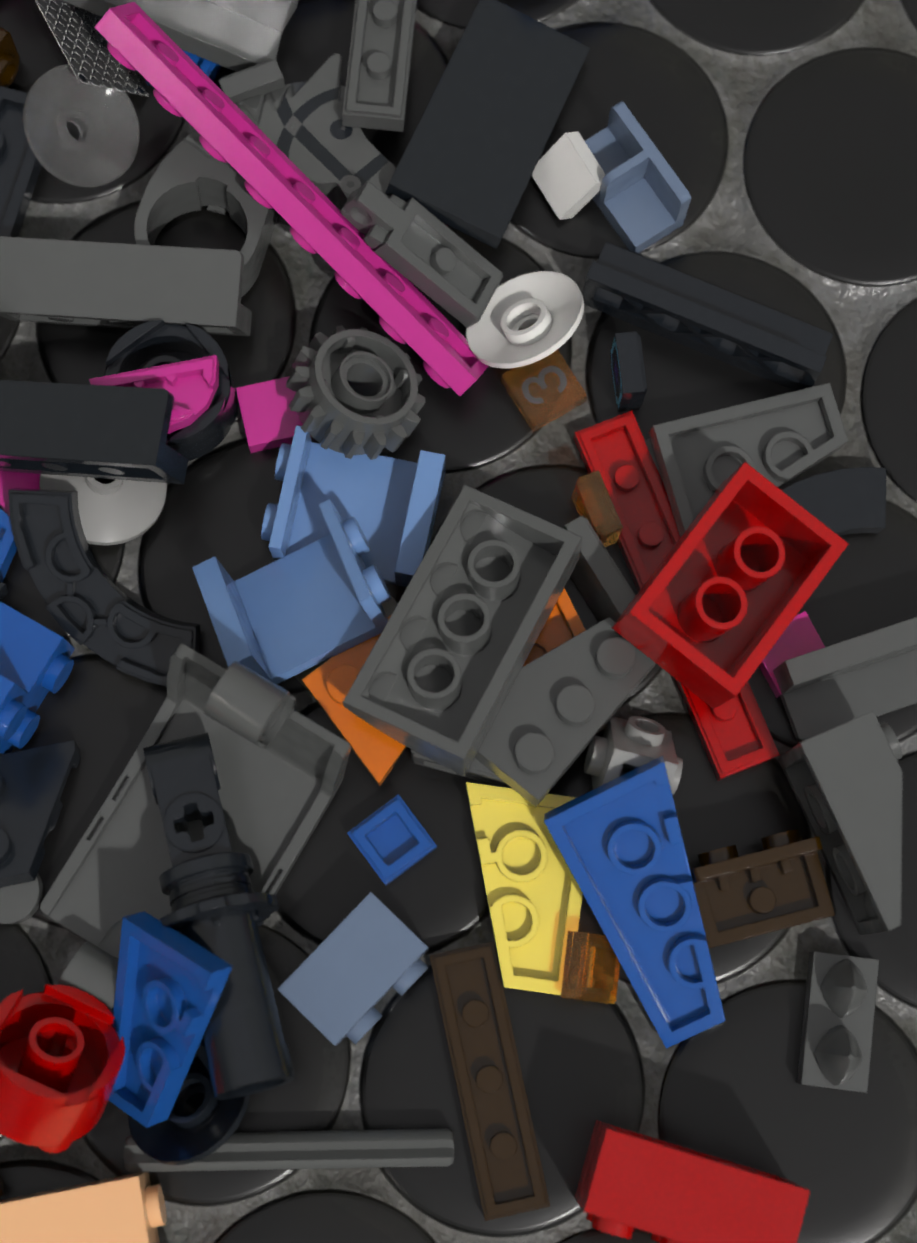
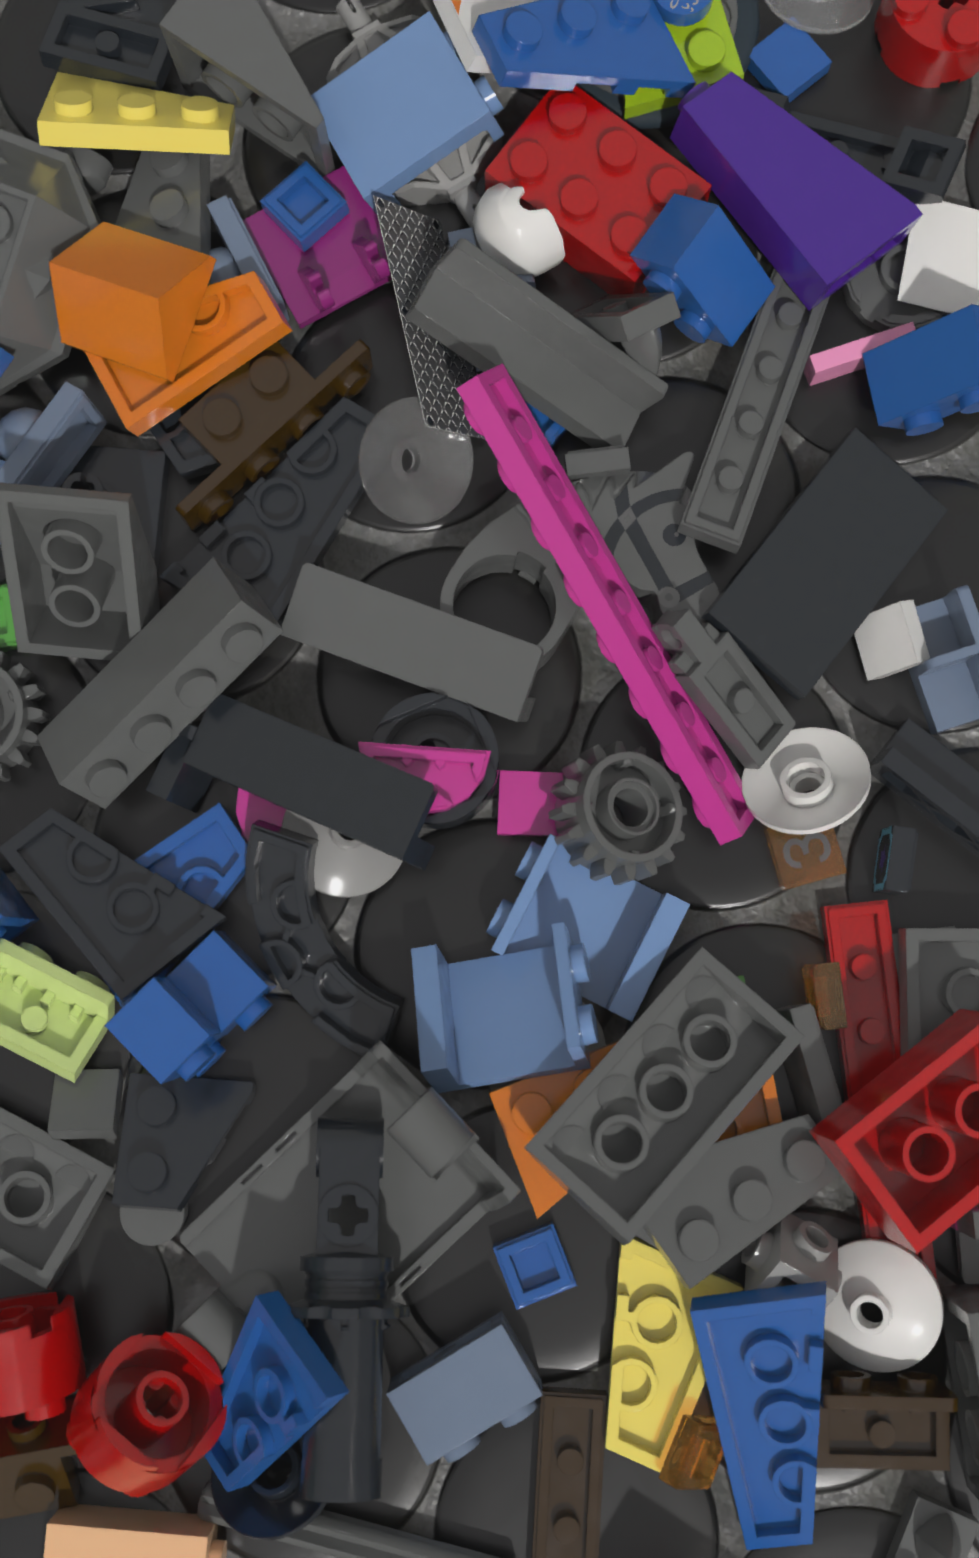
camera: 25 degrees right, 5 degrees up
(755, 776) = (904, 1292): none -> white dish

